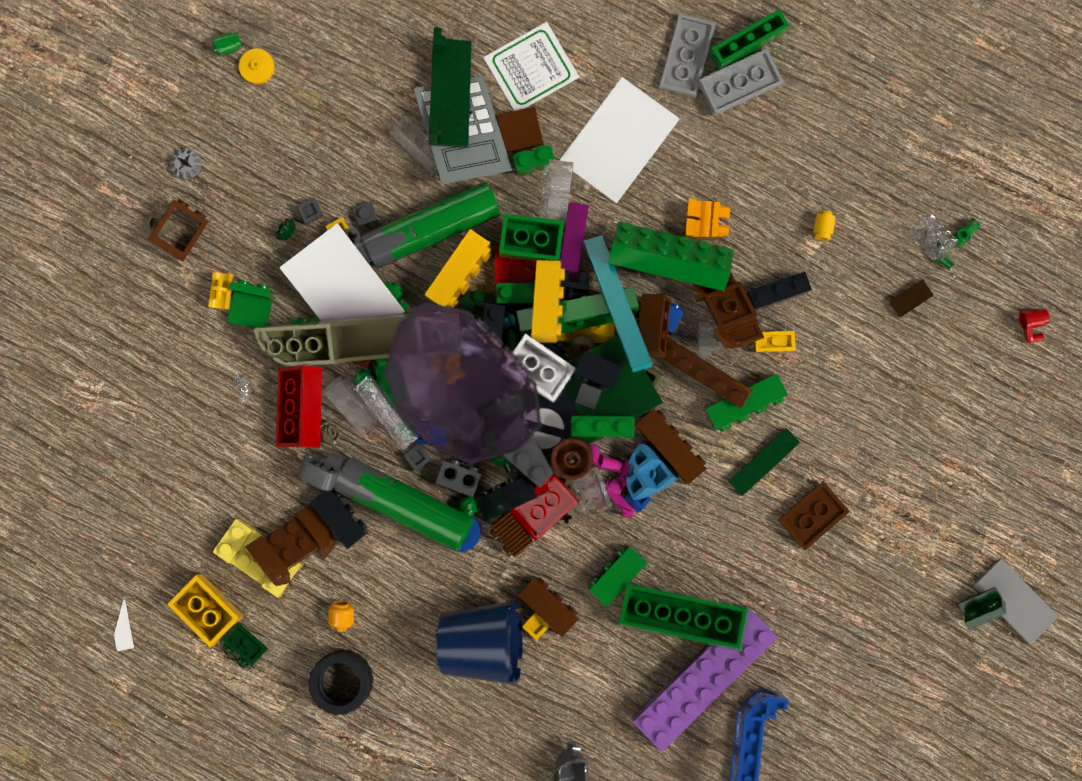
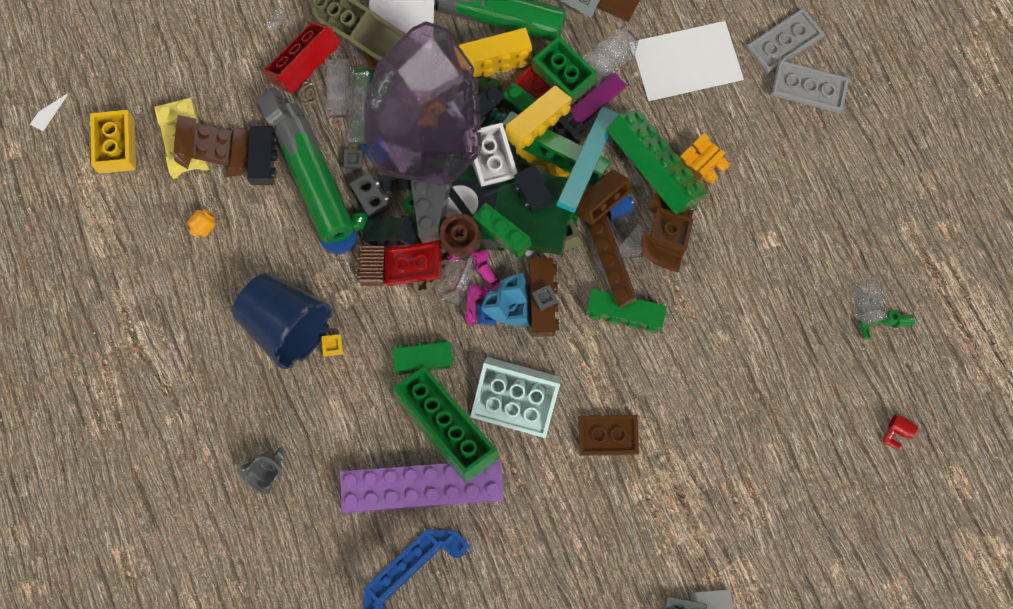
camera: 35 degrees right, 10 degrees down
(242, 646) = (115, 188): dark green bracket -> none
(323, 699) = (146, 249): black tyre -> none
(529, 161) = (607, 21): green brick -> none
(549, 606) = (354, 338): reddish brown brick -> none
(588, 396) = (511, 203): dark grey slope -> none
(677, 449) = (545, 297): none -> dark grey plate
(717, 545) = (515, 397): none -> light aqua slope
(749, 40) = (840, 61): green brick -> none
(763, 462) = (603, 366): dark green tile -> none
(776, 342) = (685, 285): yellow plate -> none
(779, 291) = (717, 251): black brick -> none
(824, 225) = (791, 232): yellow brick -> none
(911, 298) = (816, 337): dark brown tile -> none

